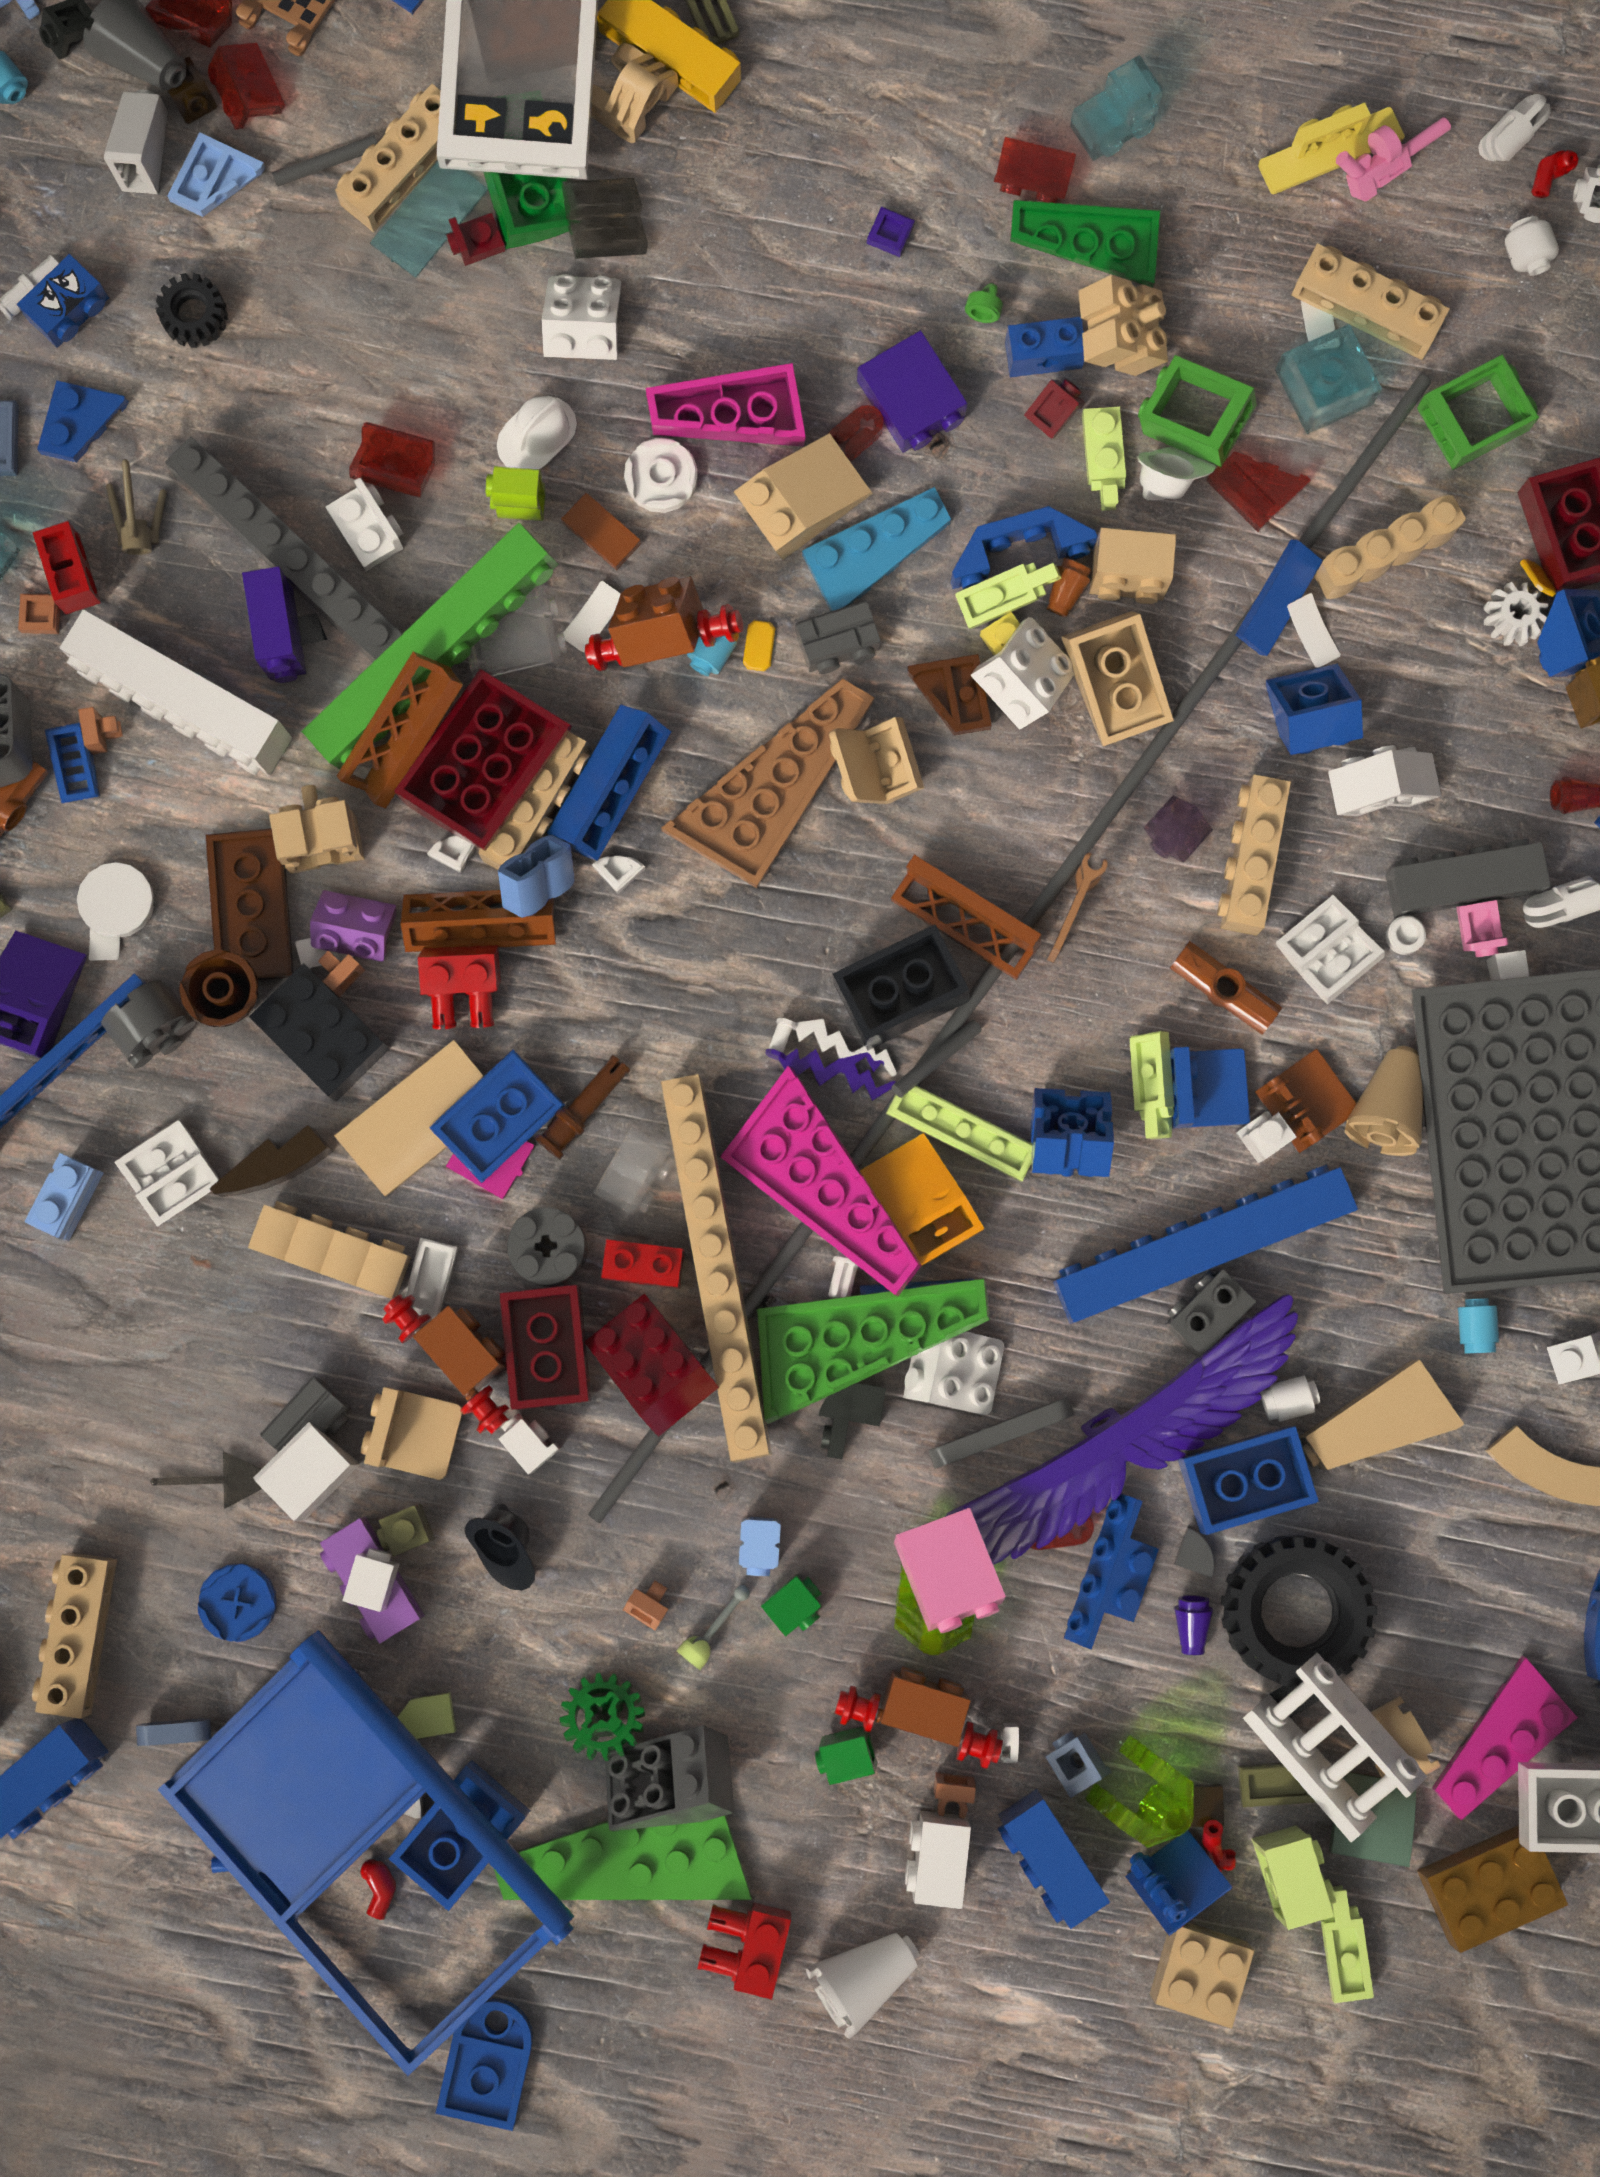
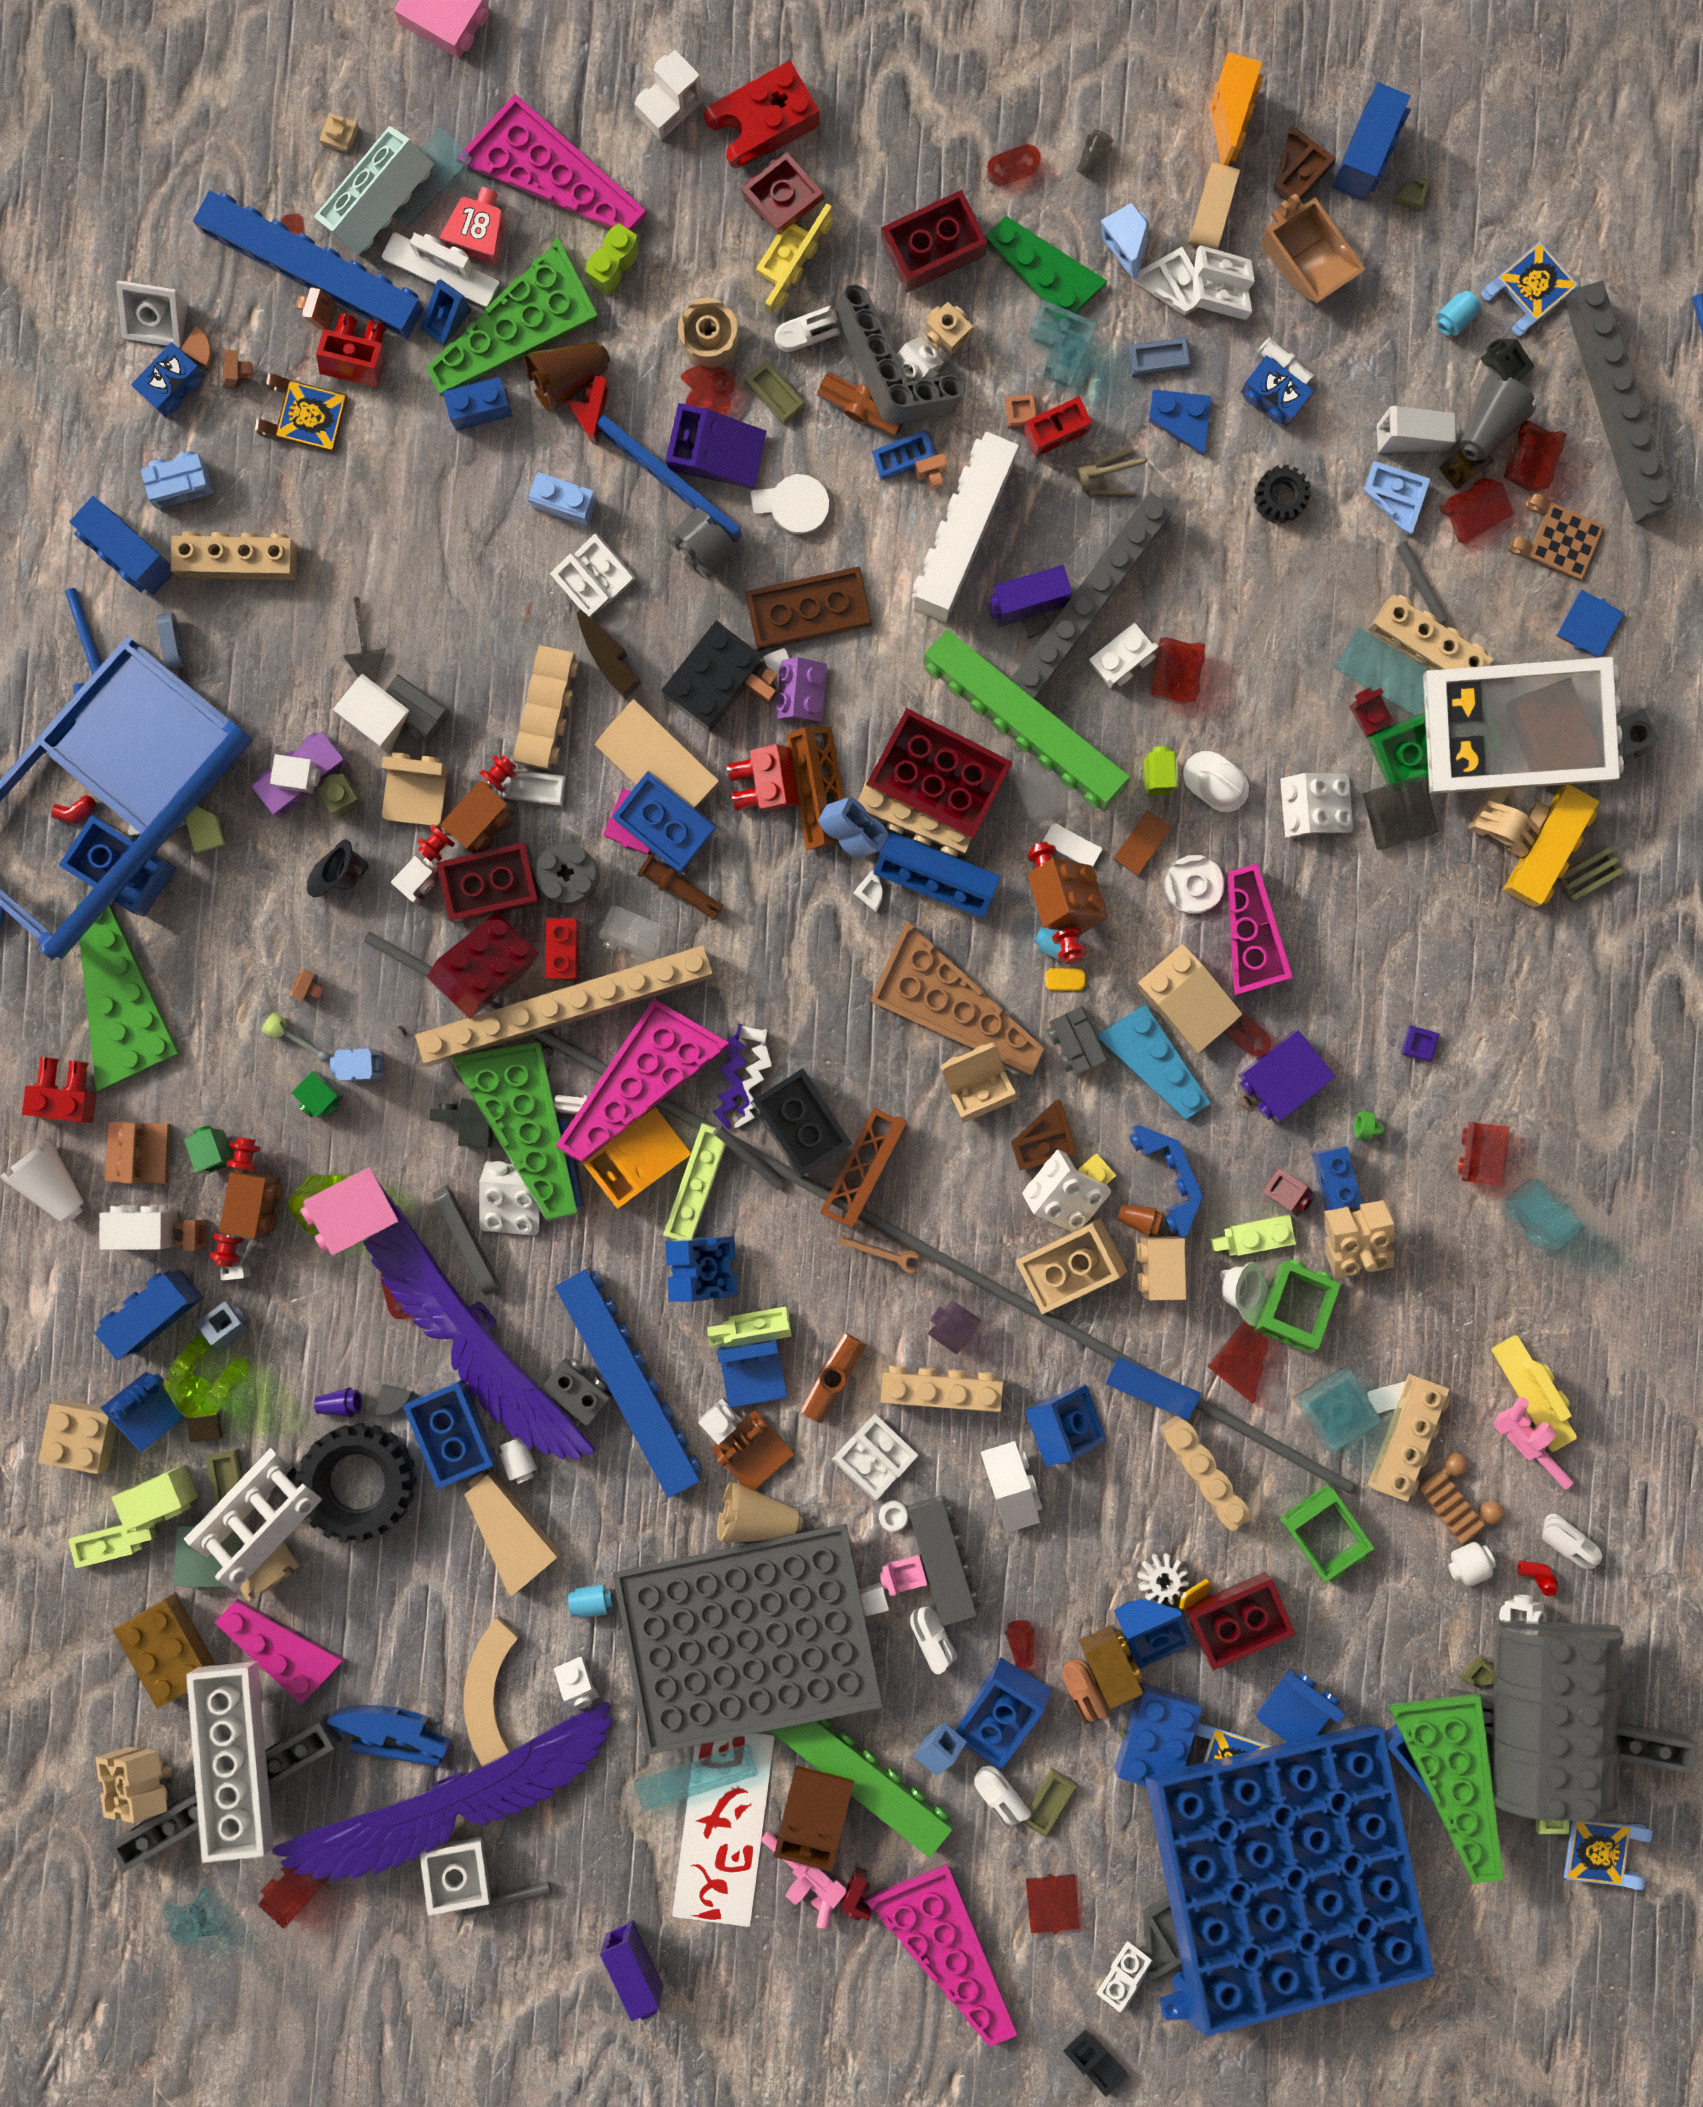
camera: 80 degrees right, 5 degrees up
(141, 1849) = (83, 629): none -> blue bar
(219, 988) = (728, 594): reddish brown cone -> none
(237, 1602) = (273, 675): blue tile -> none
(316, 836) = (867, 651): tan brick -> none
(412, 730) = (957, 713): dark orange fence -> none
(452, 852) = (868, 758): white tile -> none
(594, 1729) = (205, 953): green gear -> none
(670, 1780) = (175, 1018): dark grey slope -> none
(838, 1854) = (138, 1152): none -> nougat bracket
(1005, 593) = (1129, 1169): yellowish green hinge -> none
(1094, 236) = (1435, 1209): green wing -> none
(1114, 1575) = (367, 1338): blue bracket -> none
(1212, 1844) = (167, 1440): red arm -> none
(1312, 631) = (1130, 1418): white sticker -> none
(1457, 263) = (1452, 1507): none -> medium nougat gear

